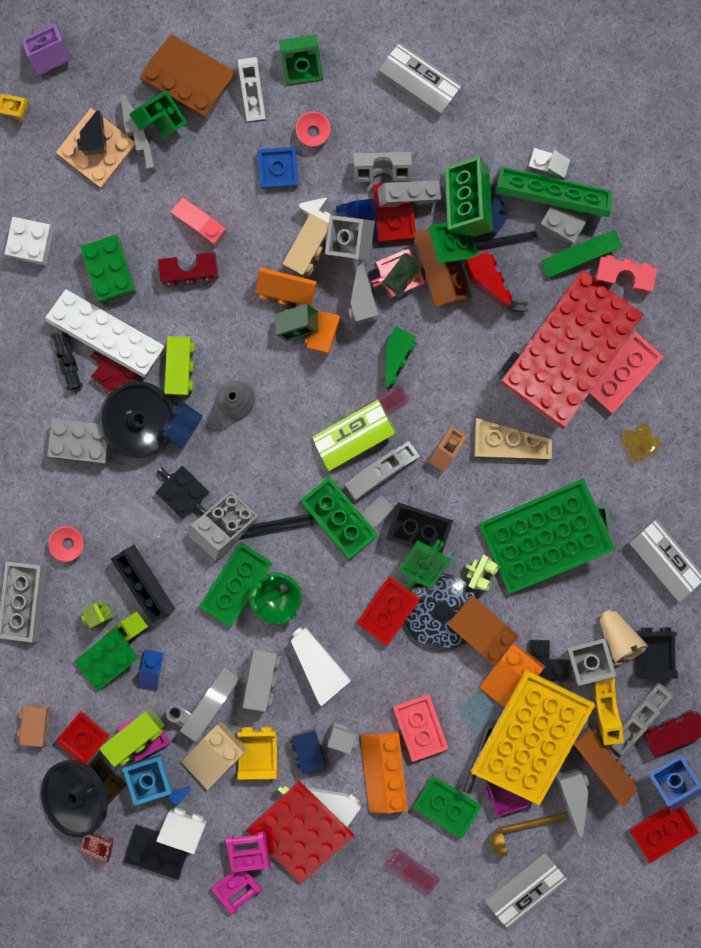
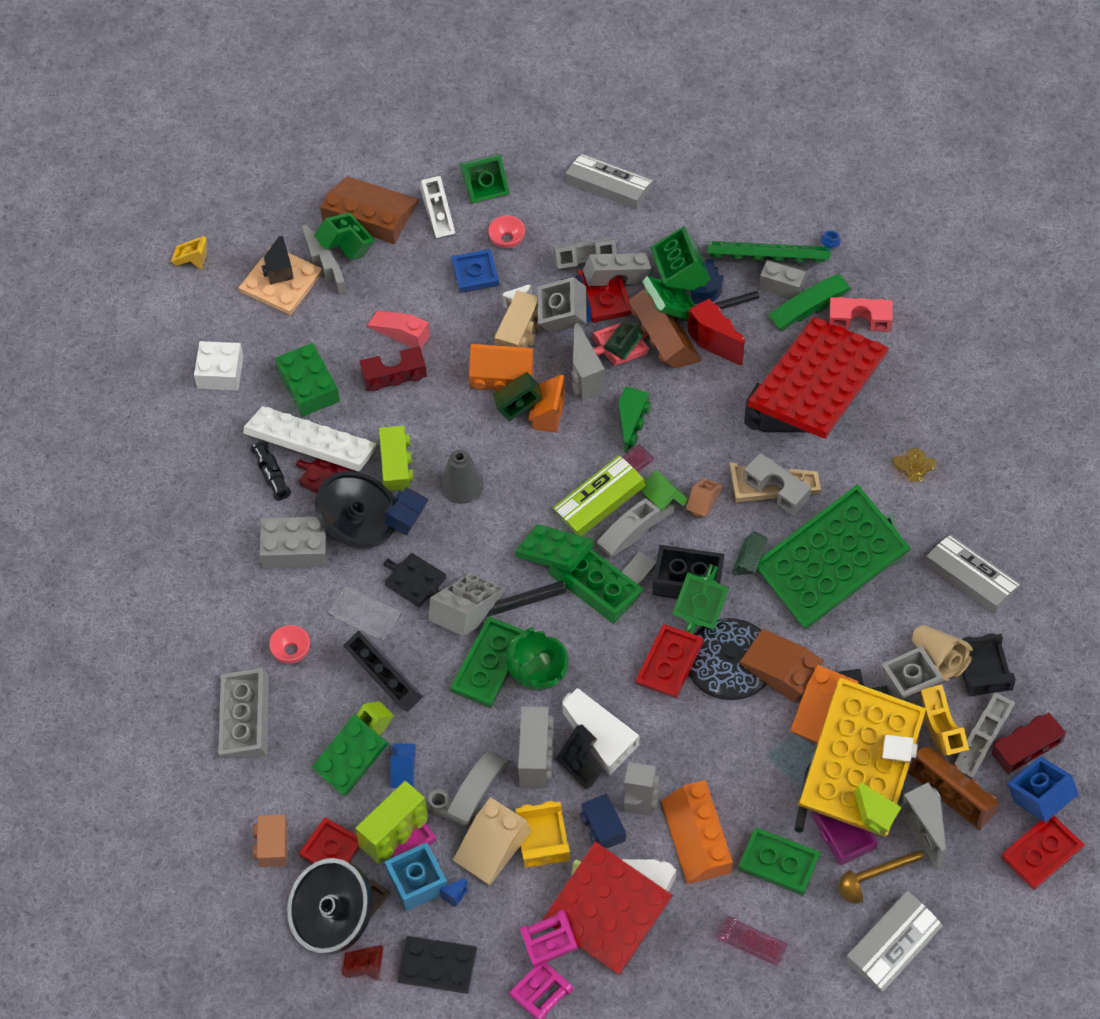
camera: 10 degrees left, 30 degrees down
(46, 50) = (221, 203): medium lavender slope -> none
(96, 614) = (333, 704): lime slope -> none
(182, 830) = (465, 926): white slope -> none
(294, 690) = (574, 756): none -> black plate
(306, 484) = (554, 548): none -> green plate
(411, 441) = (662, 491): none -> bright green panel
(420, 727) = (730, 780): coral plate -> none
(476, 514) = (750, 554): none -> clear green slope
(478, 573) = (764, 607): yellowish green hips -> none
(519, 306) = (754, 357): dark grey bush -> none
(526, 463) = (765, 472): none -> light grey arch
(533, 791) = (875, 809): none -> lime slope
(550, 163) = (762, 232): white slope -> none
(563, 744) = (899, 749): none -> white brick
(619, 181) = (830, 239): none -> blue plate
(625, 372) = (879, 402): coral plate -> none

